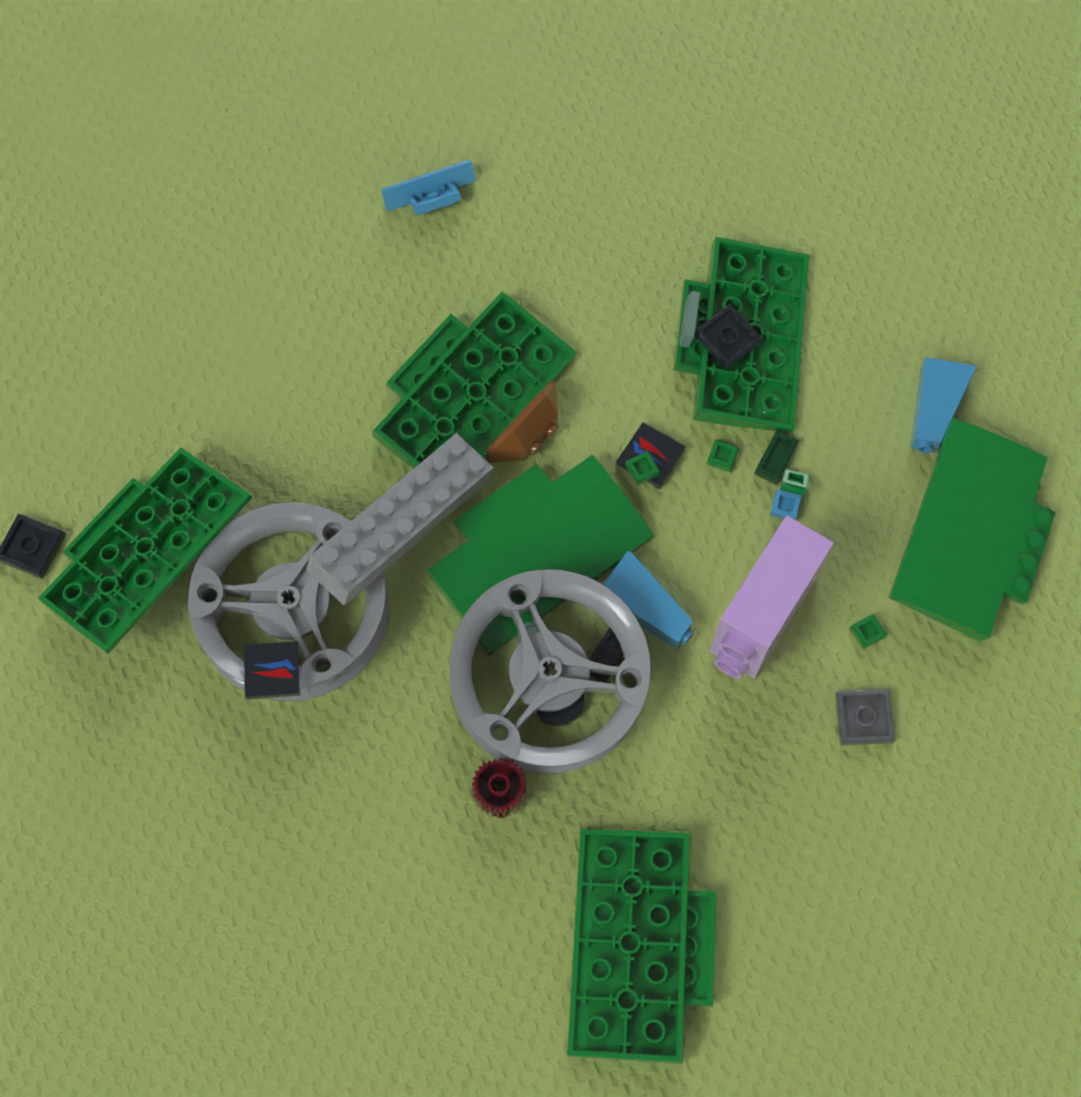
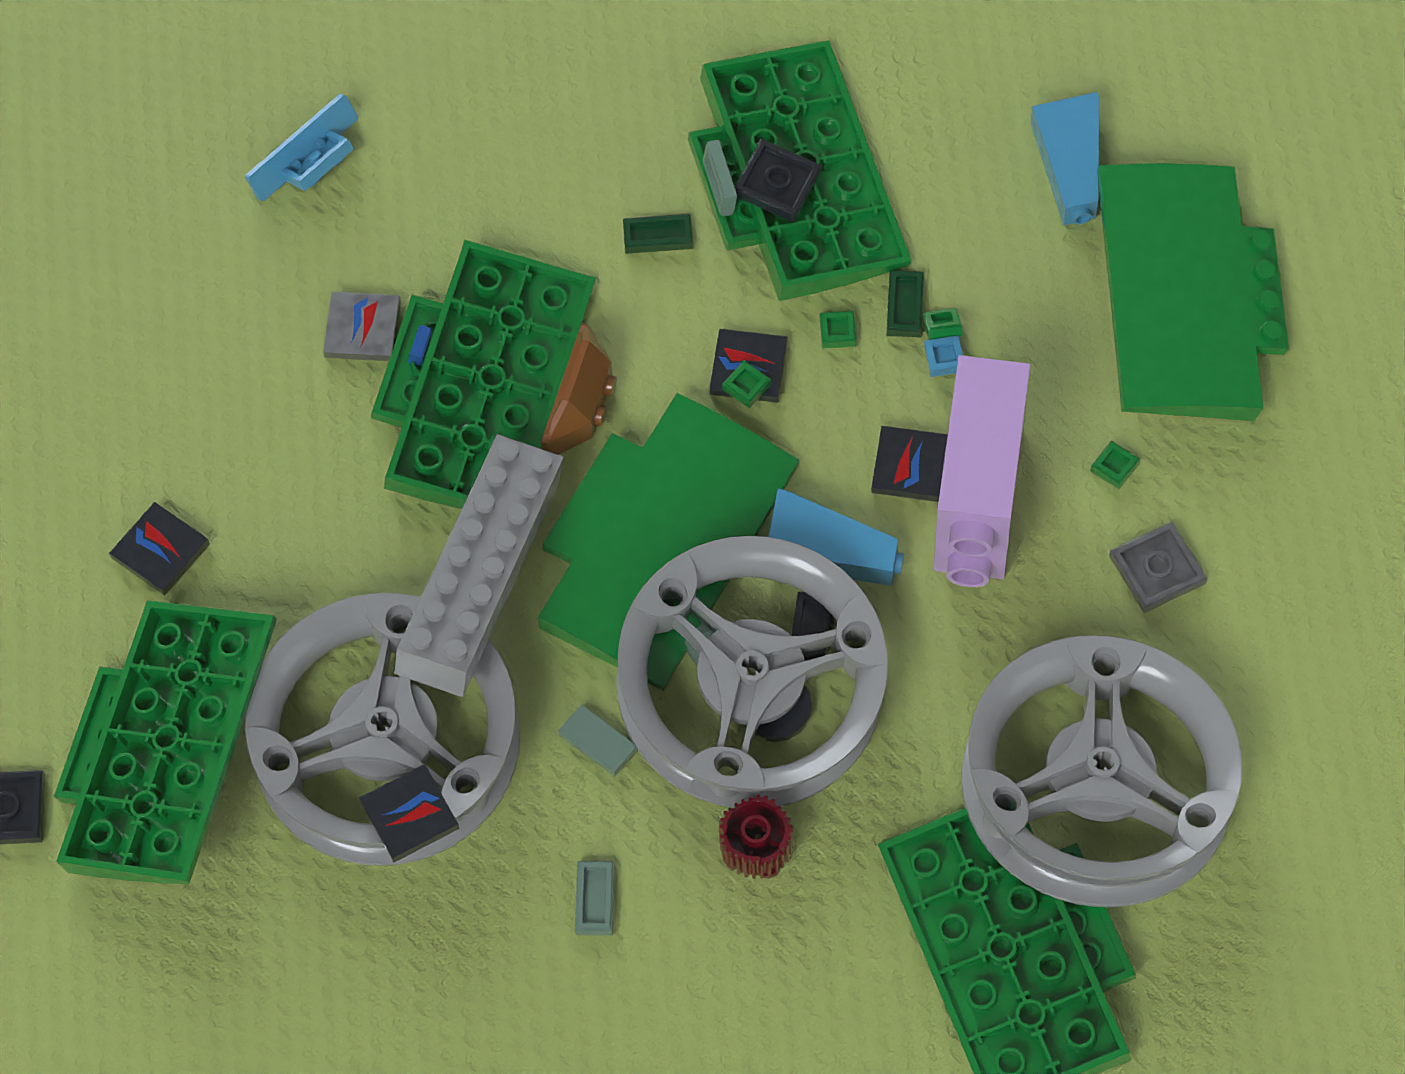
camera: 20 degrees left, 5 degrees down
(210, 414) = (159, 548): none -> black tile
(374, 779) = (594, 898): none -> sand green tile
(410, 320) = (361, 326): none -> flat silver tile
(428, 670) = (597, 740): none -> sand green tile
(439, 349) = (420, 345): none -> blue tile
(633, 339) = (657, 233): none -> dark green tile
(725, 568) = (909, 463): none -> black tile
(765, 867) = (1101, 671): none -> light grey wheel

